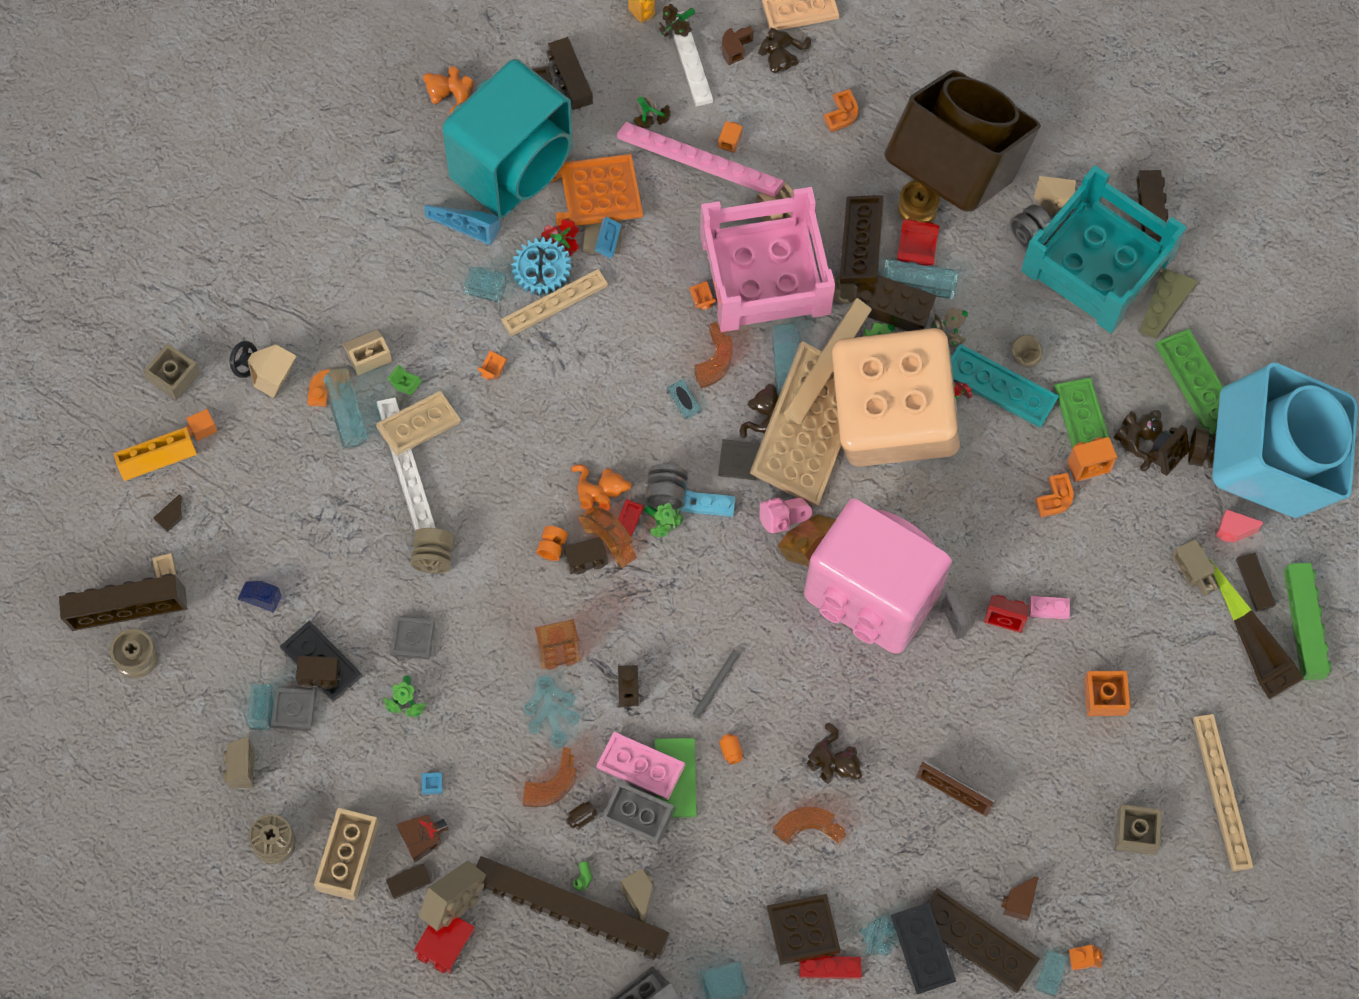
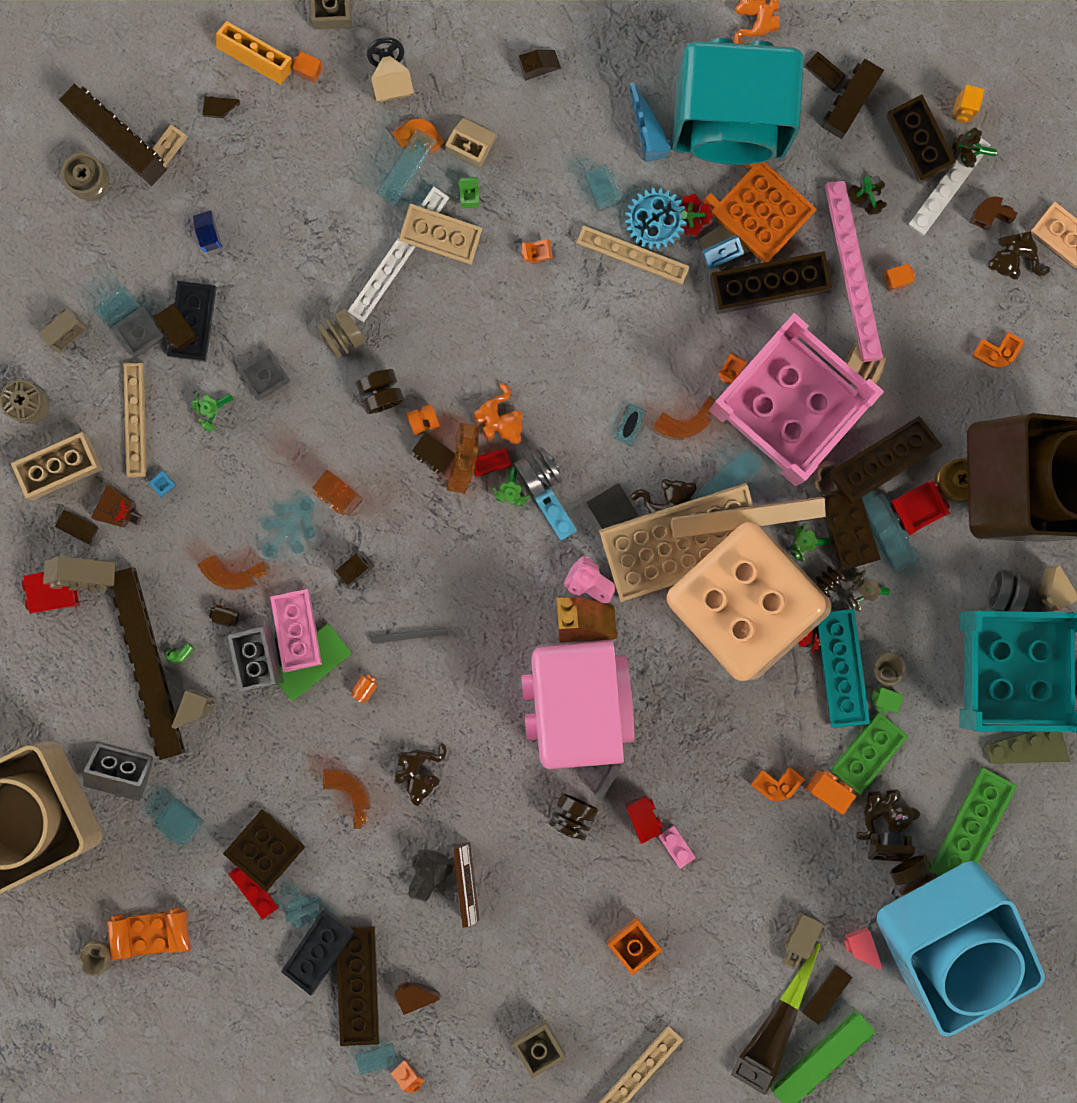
camera: 50 degrees right, 20 degrees up
(349, 262) = (538, 63): none -> dark brown slope
(361, 767) = (135, 420): none -> tan tile
(498, 554) = (377, 386): none -> dark brown wheel
(640, 49) = (920, 139): none -> dark brown brick
(659, 222) = (770, 282): none -> dark brown brick
(924, 808) = (430, 870): none -> clear smoke piece
(965, 661) = (573, 816): none -> dark brown wheel
(1050, 371) = (886, 700): none -> bright green brick

